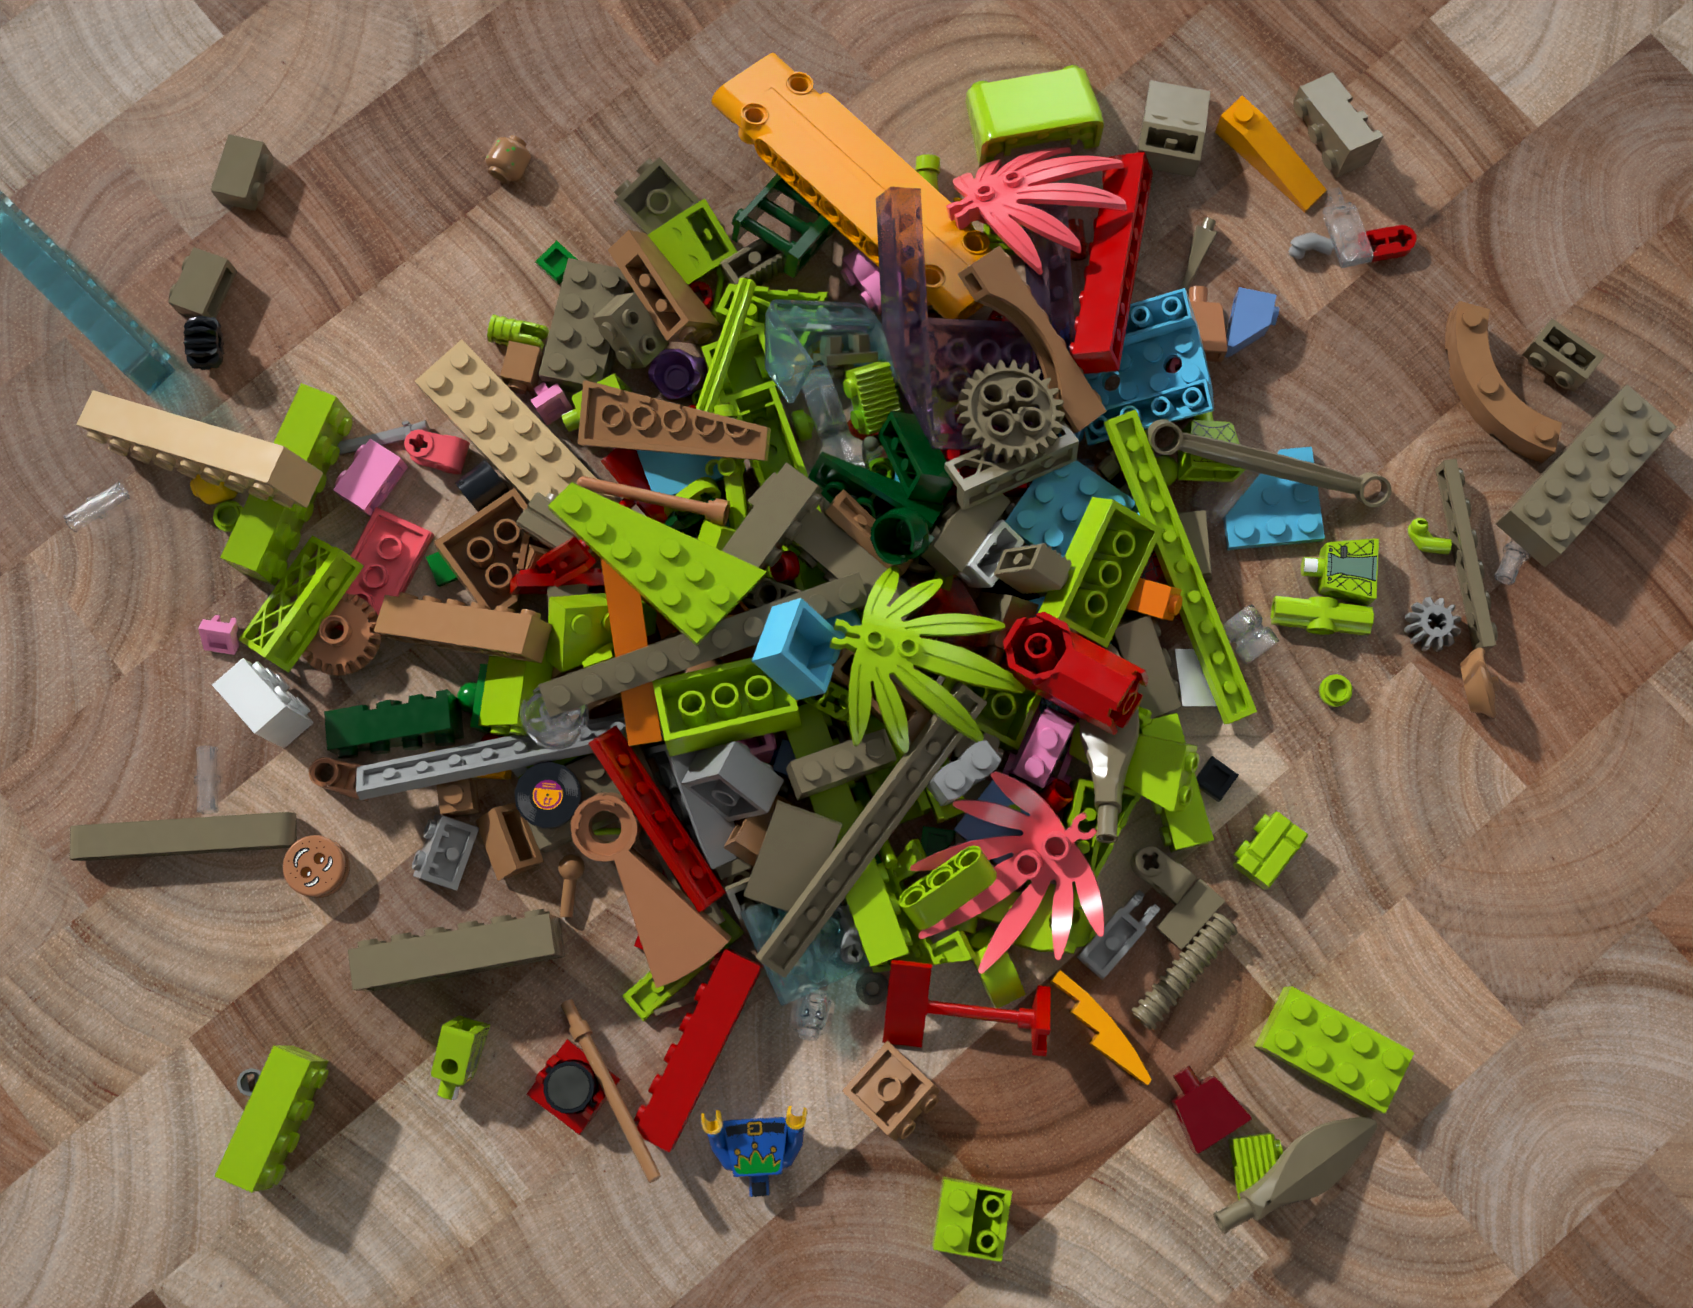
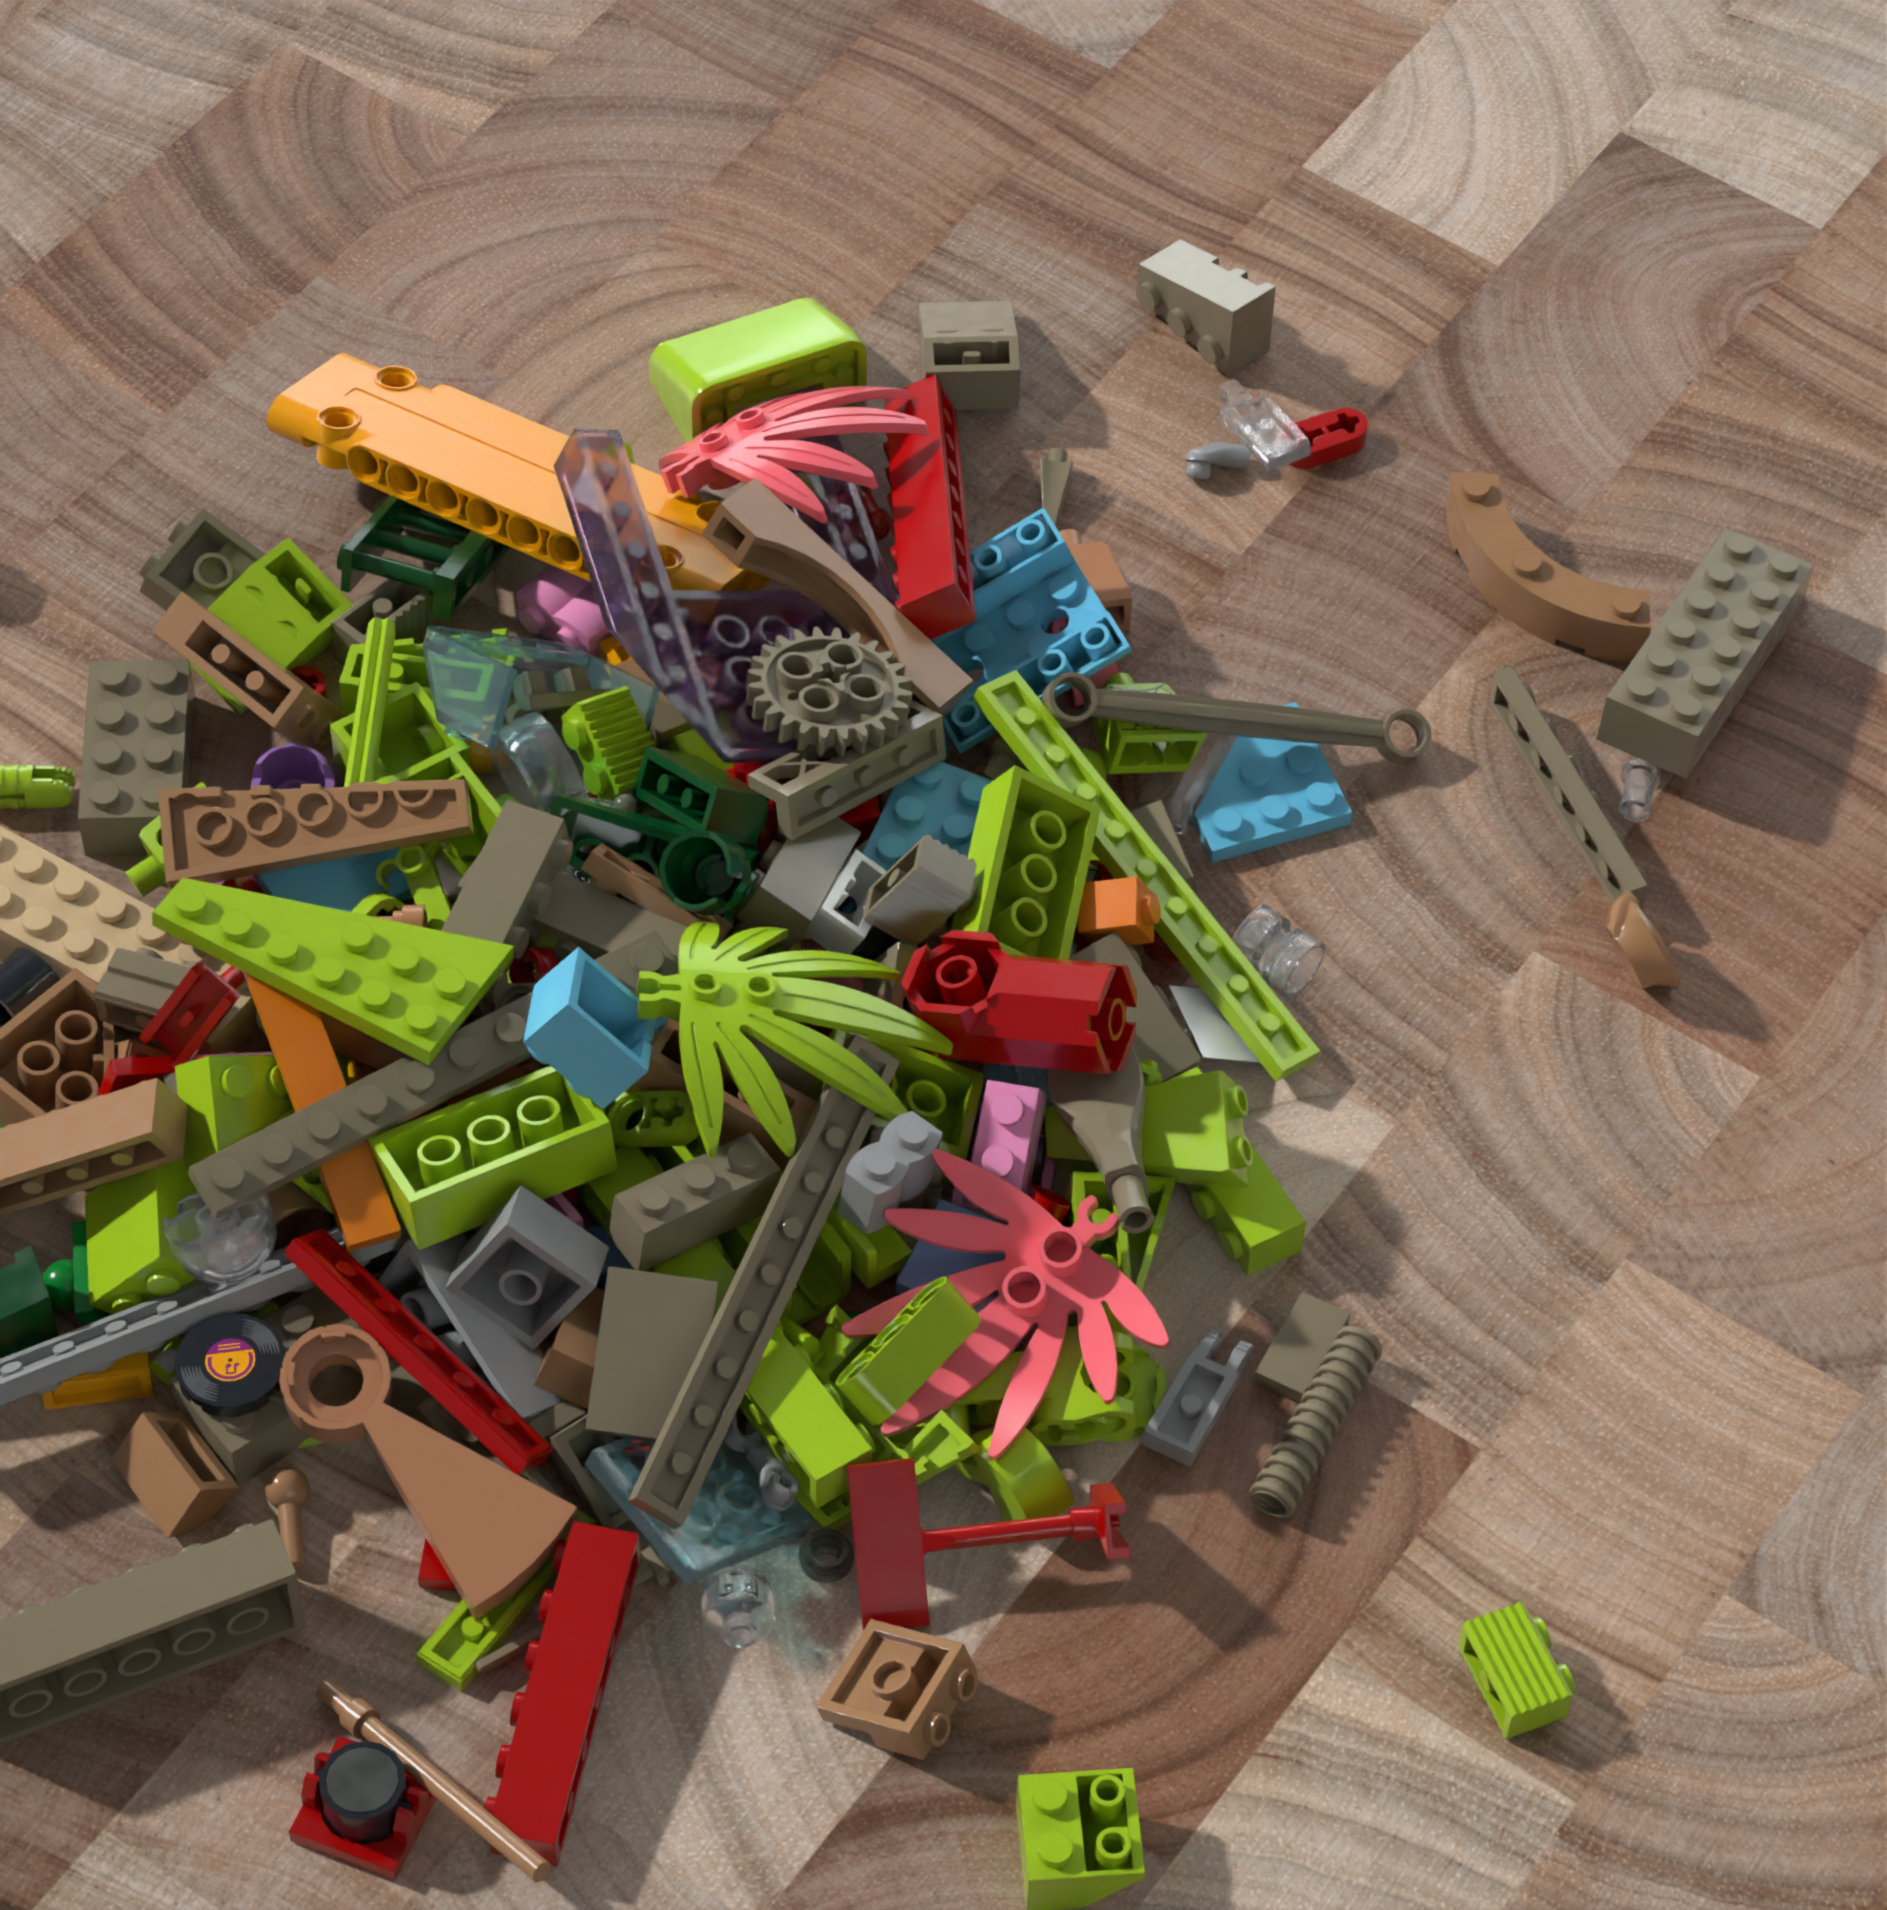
camera: 20 degrees left, 25 degrees down
(444, 851) = (69, 1508): light grey bracket -> none
(458, 798) = (76, 1424): medium nougat brick -> none
(458, 1054) = (161, 1785): lime torso -> none
(521, 367) = (47, 819): medium nougat brick -> none
(550, 402) = (104, 858): bright pink tile -> none
(554, 261) = (64, 689): green tile -> none
(630, 331) = (213, 728): dark tan brick -> none
(718, 291) = (329, 656): lime hinge -> none
(756, 1146) = (696, 1814): torso -> none
(1108, 1037) = (1225, 1535): light orange slope -> none
(1166, 877) = (1241, 1297): dark tan piece -> none
(1206, 1110) = (1410, 1603): dark red torso -> none
(1215, 778) = (1288, 1157): black tile -> none
(1249, 318) = (1155, 560): medium blue slope -> none
(1269, 153) = (1111, 352): light orange slope -> none
(1269, 850) = (1396, 1229): lime brick -> none
(1302, 1171) = (1584, 1637): dark tan animal -> none
(1322, 615) = (1379, 909): lime piece -> none
(1334, 1049) = (1581, 1473): lime brick -> none
(1335, 690) = (1431, 1003): lime plate -> none
(1346, 570) = (1396, 844): torso -> none
(1424, 541) = (1503, 790): lime arm -> none
(1424, 614) = (1547, 887): light grey gear -> none
(1562, 355) = (1623, 516): dark tan brick -> none

